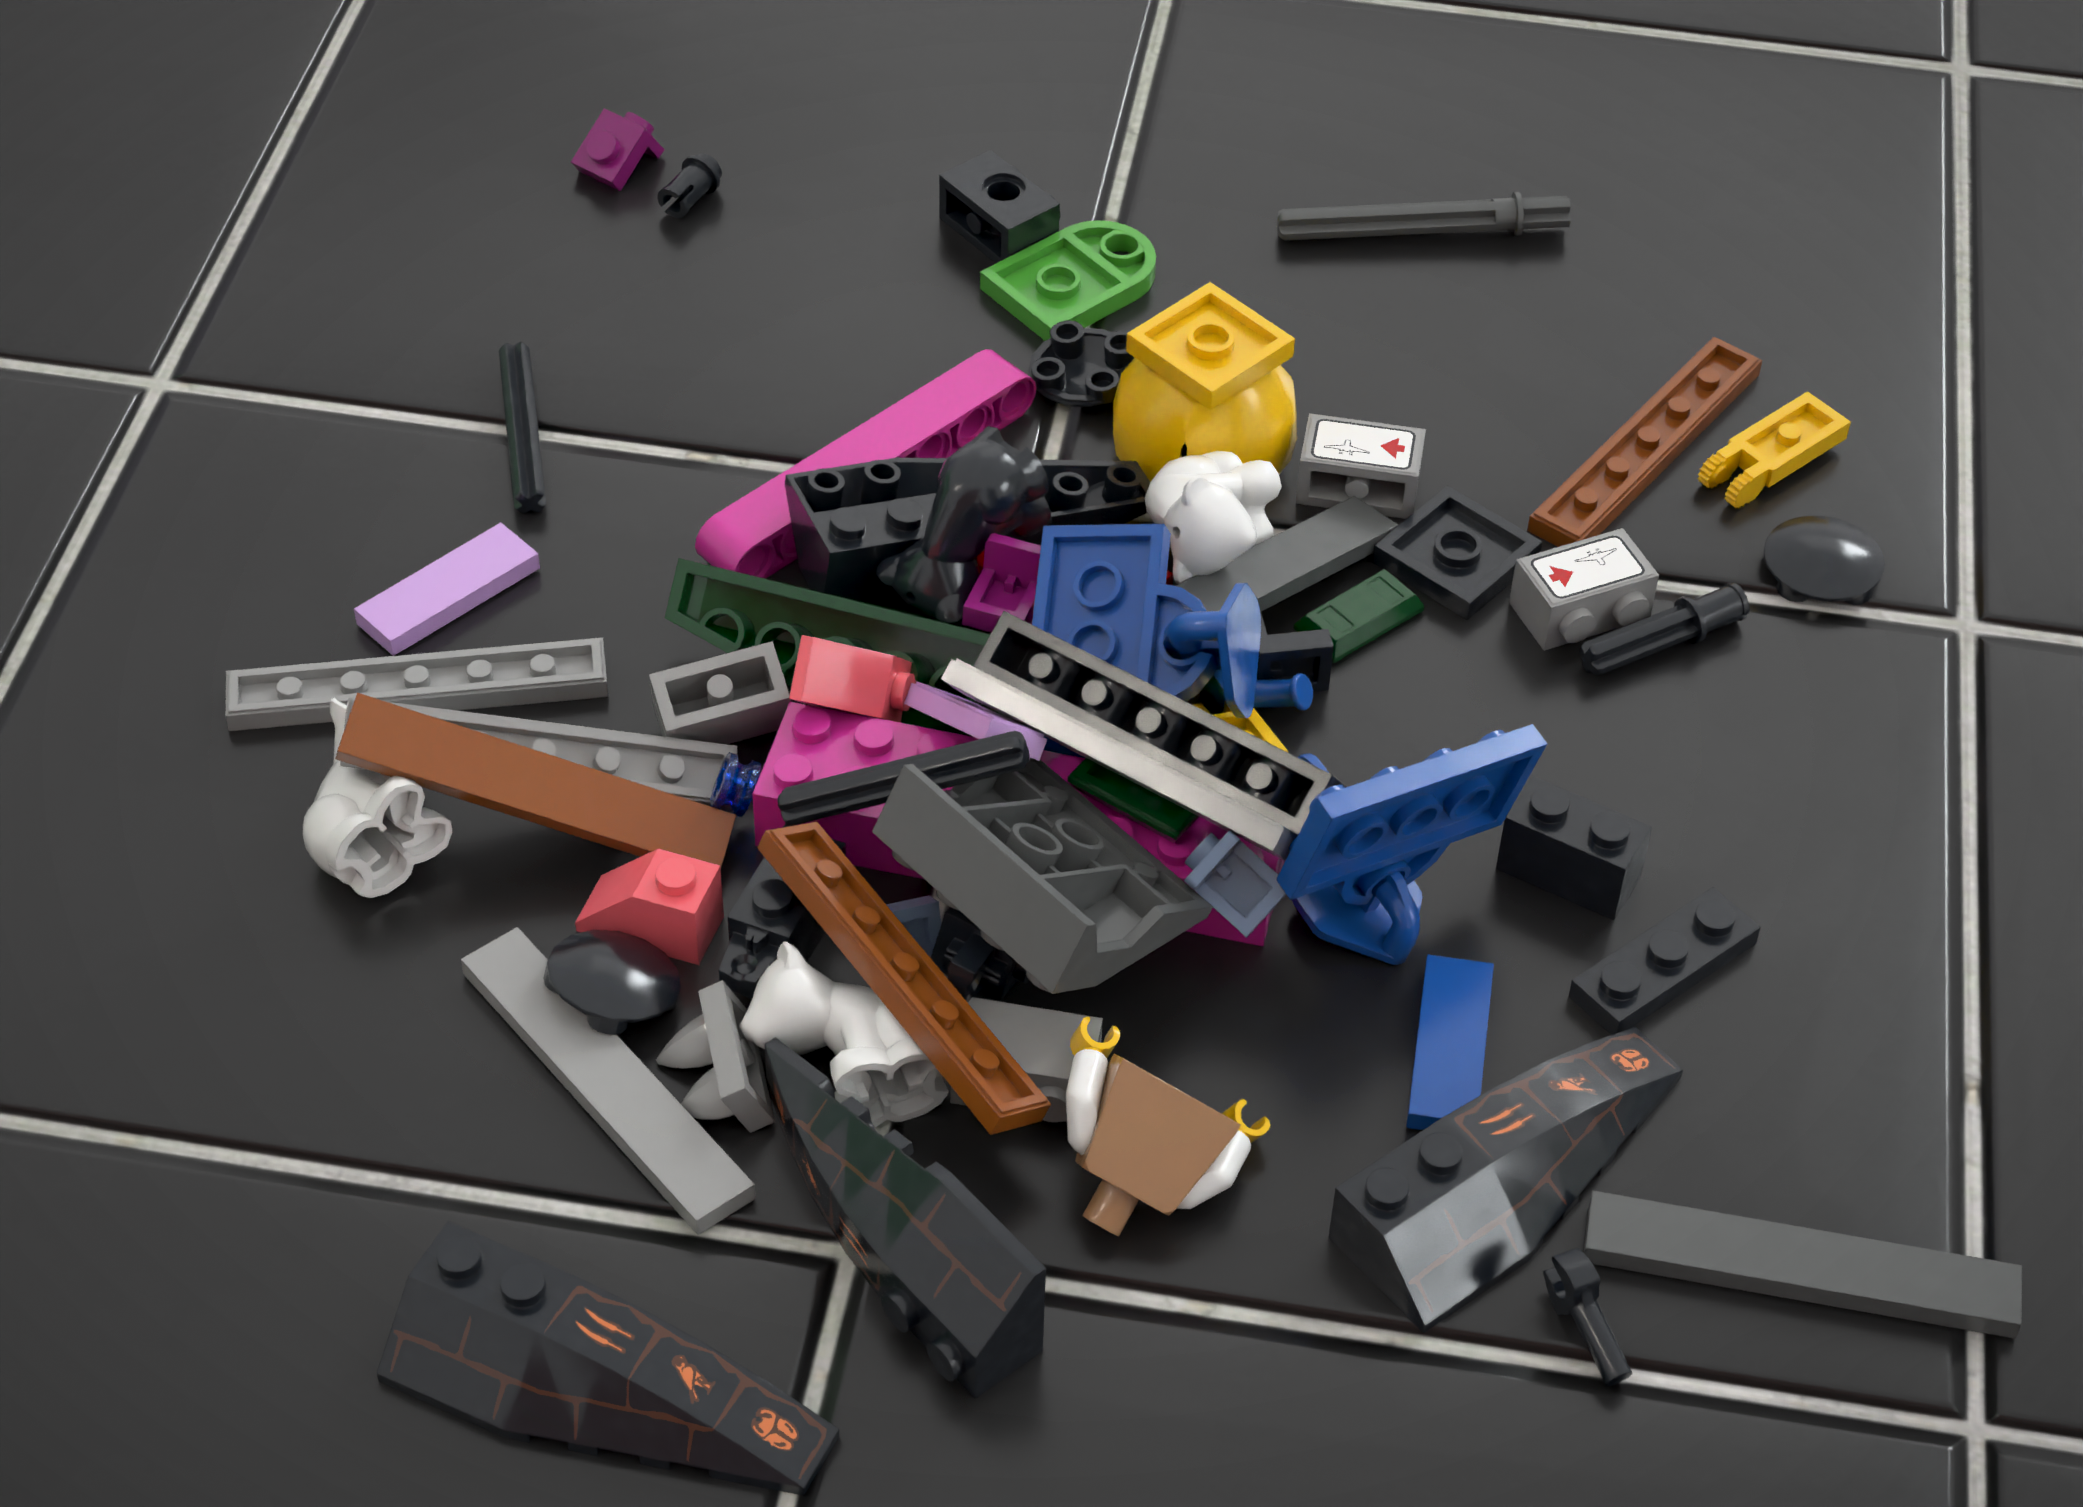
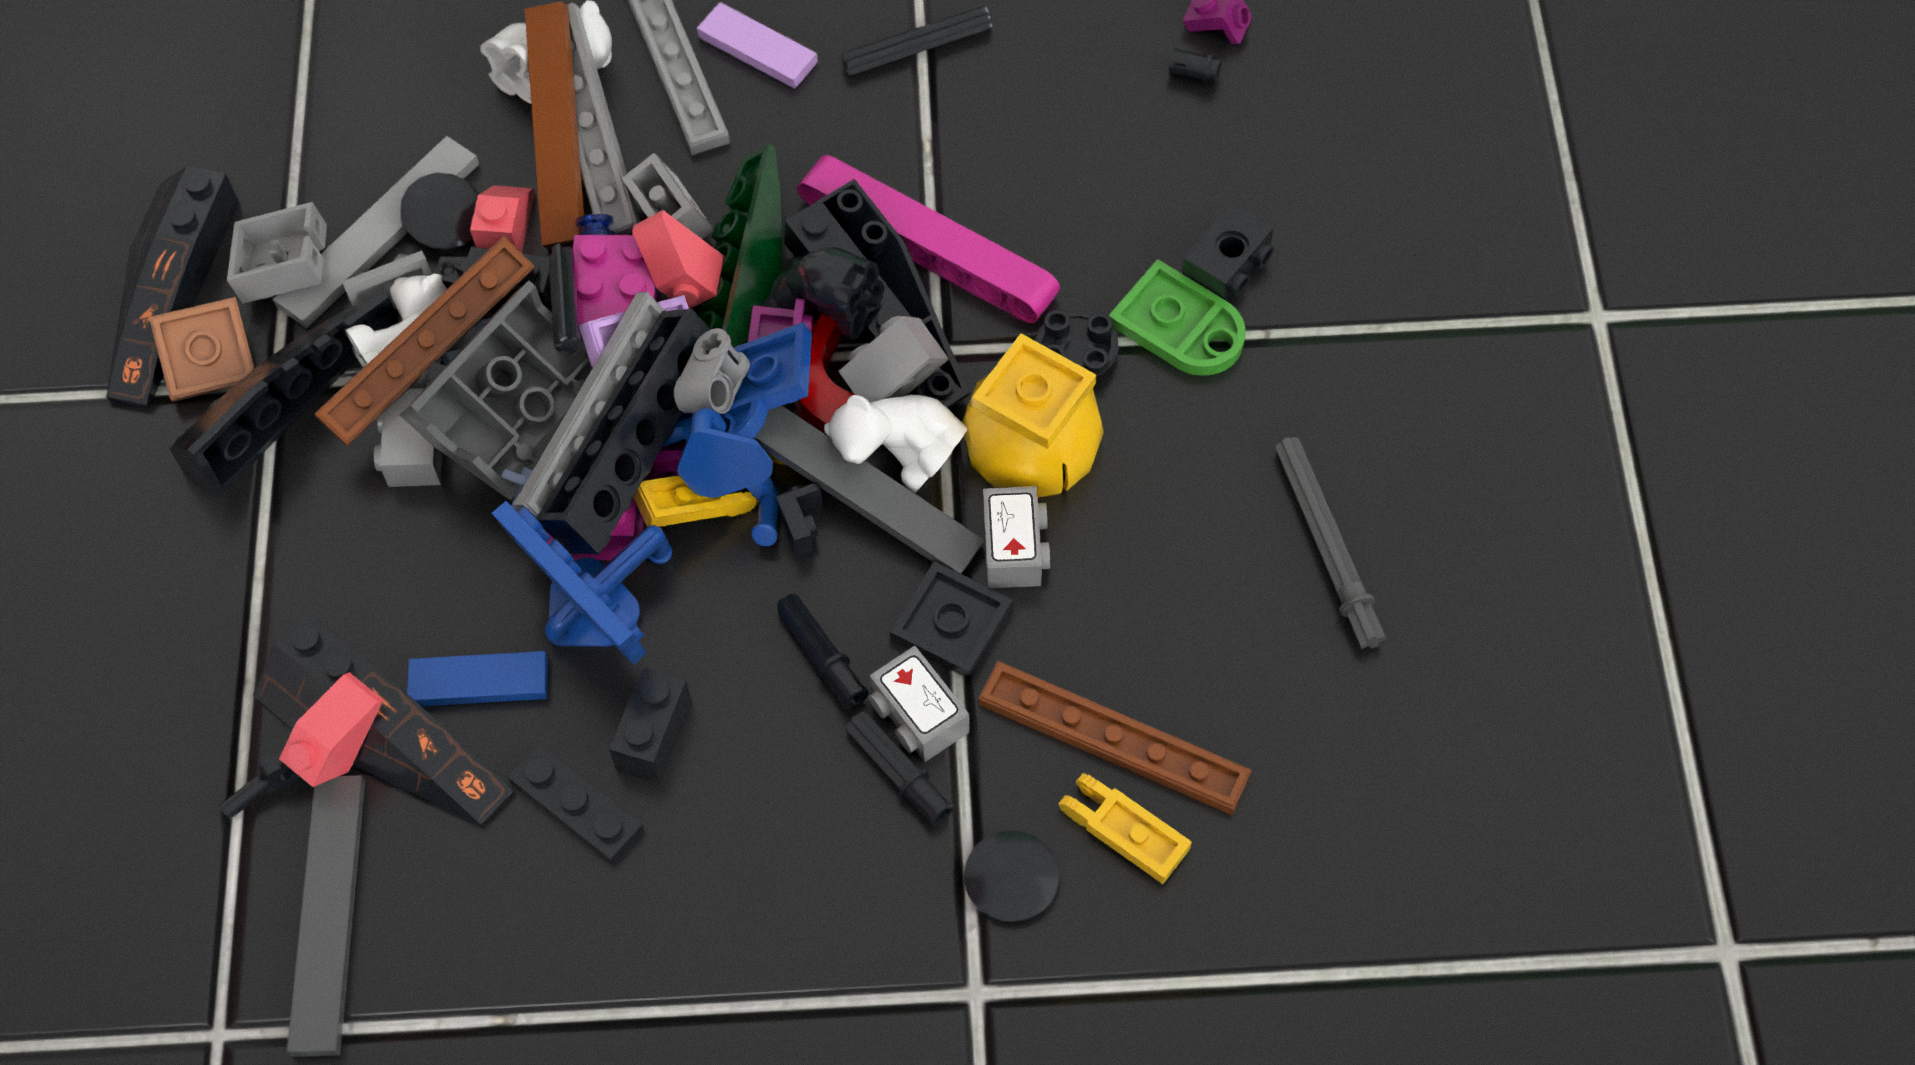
camera: 80 degrees right, 15 degrees up
(601, 1156) = (277, 252): none -> light grey piece
(775, 1314) = (202, 348): none -> nougat tile
(1096, 477) = (894, 360): none -> light grey brick
(1102, 624) = (711, 377): none -> light grey piece
(1147, 1136) = (342, 506): medium nougat torso -> none
(1363, 613) = (870, 567): dark green tile -> none
(1483, 672) = (830, 663): none -> black axle
(1548, 1175) = (332, 731): none -> coral slope

